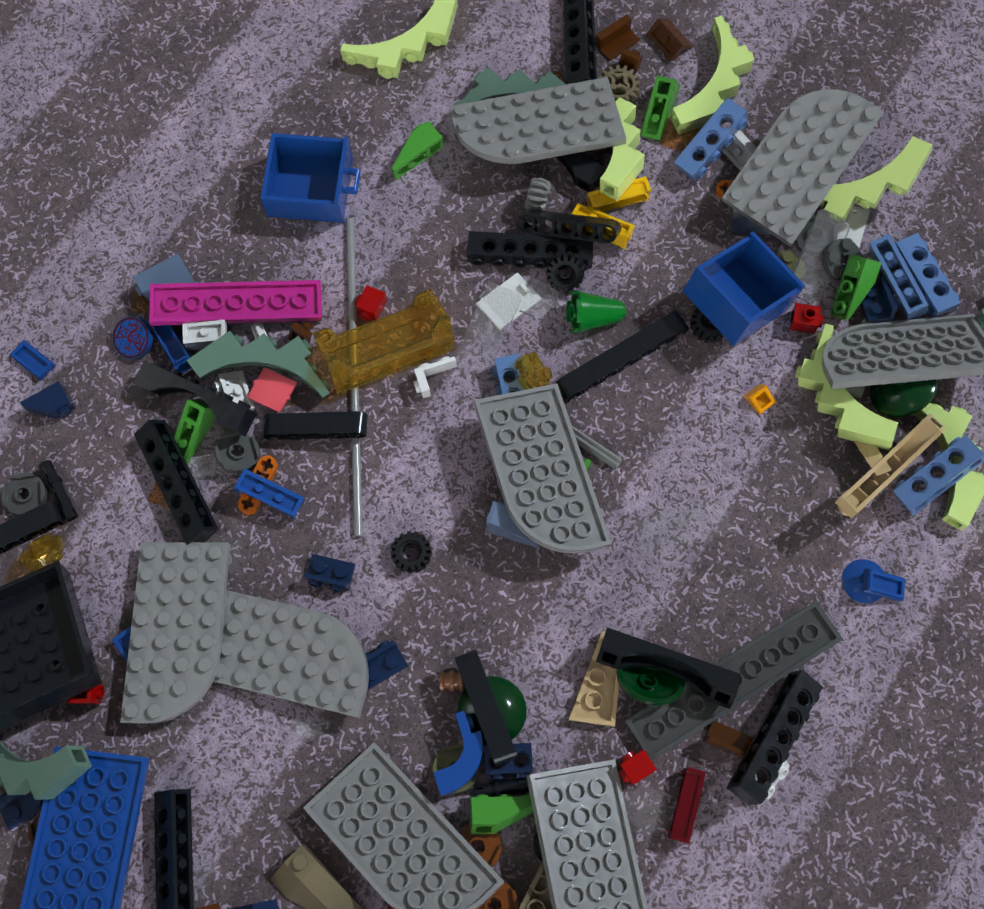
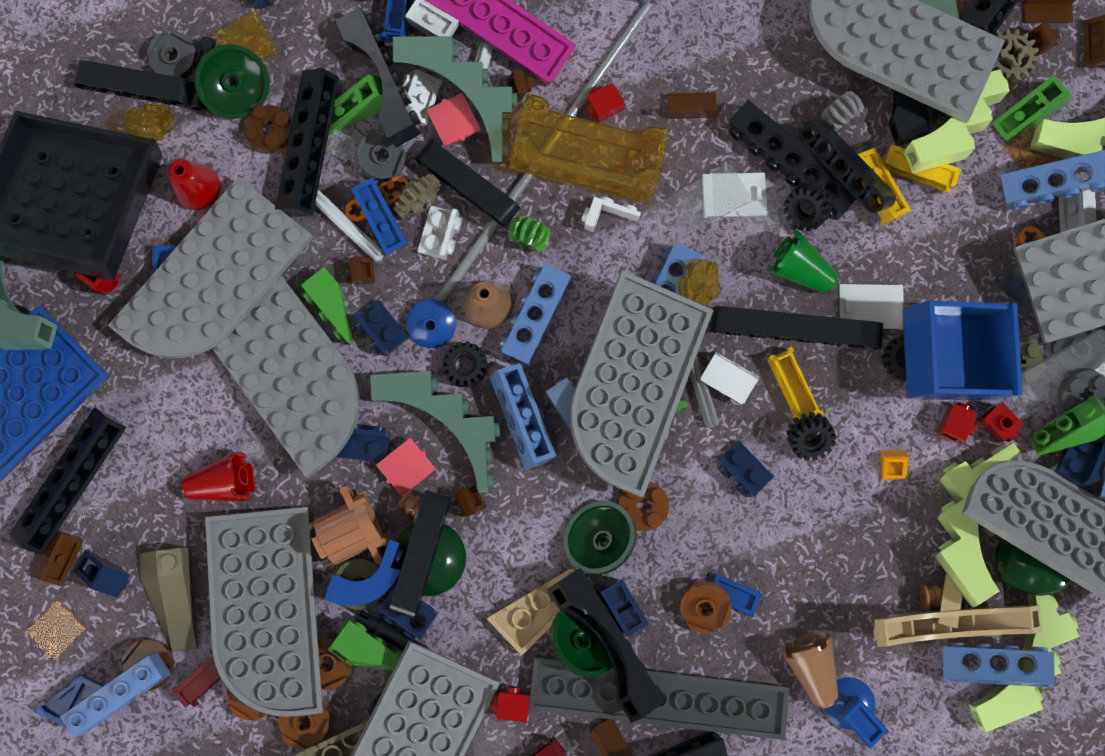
camera: 40 degrees right, 10 degrees up
(75, 446) = (251, 34): none -> clear yellow plate
(93, 465) = (250, 81): none -> dark green dish
(110, 573) = (193, 184): none -> red cone
(147, 500) = (262, 117): none -> reddish brown plate
(252, 520) = (349, 227): none -> white axle
(272, 578) = (330, 298): none -> bright green slope
(284, 542) = (361, 270): none -> reddish brown tile
(286, 459) = (417, 196): none -> dark tan gear
(293, 773) = (221, 480): none -> red cone
(320, 475) = (439, 232): none -> white bracket
(352, 542) = (438, 313): none -> blue dish
(387, 427) = (529, 233): none -> bright green gear
(394, 498) = (488, 304): none -> medium nougat cone
(419, 732) = (349, 530): none -> nougat container
(424, 592) = (418, 390): none -> sand green arch
(424, 657) = (405, 466): none -> coral piece
(432, 447) = (525, 351): none -> medium blue brick
(433, 263) = (691, 105): none -> reddish brown panel
(481, 556) = (522, 416): none -> medium blue brick
(490, 645) = (470, 502): none -> reddish brown tile
(592, 596) = (589, 530): none -> dark green dish
(604, 422) = (729, 378): none -> white panel
(627, 560) = (652, 517): none -> dark orange plate
(652, 396) = (793, 384): none -> yellow container
(659, 303) = (873, 303): none -> white container
(659, 632) = (623, 607): none -> dark blue brick
(664, 476) = (744, 469): none -> dark blue bracket
(700, 422) = (819, 444): none -> black tyre
(726, 568) = (741, 597): none -> blue tile
(726, 595) = (705, 592): none -> dark orange plate
(778, 339) = (958, 422): none -> red brick
(822, 573) = (814, 667): none -> medium nougat cone
(857, 465) = (931, 596): none -> nougat bush

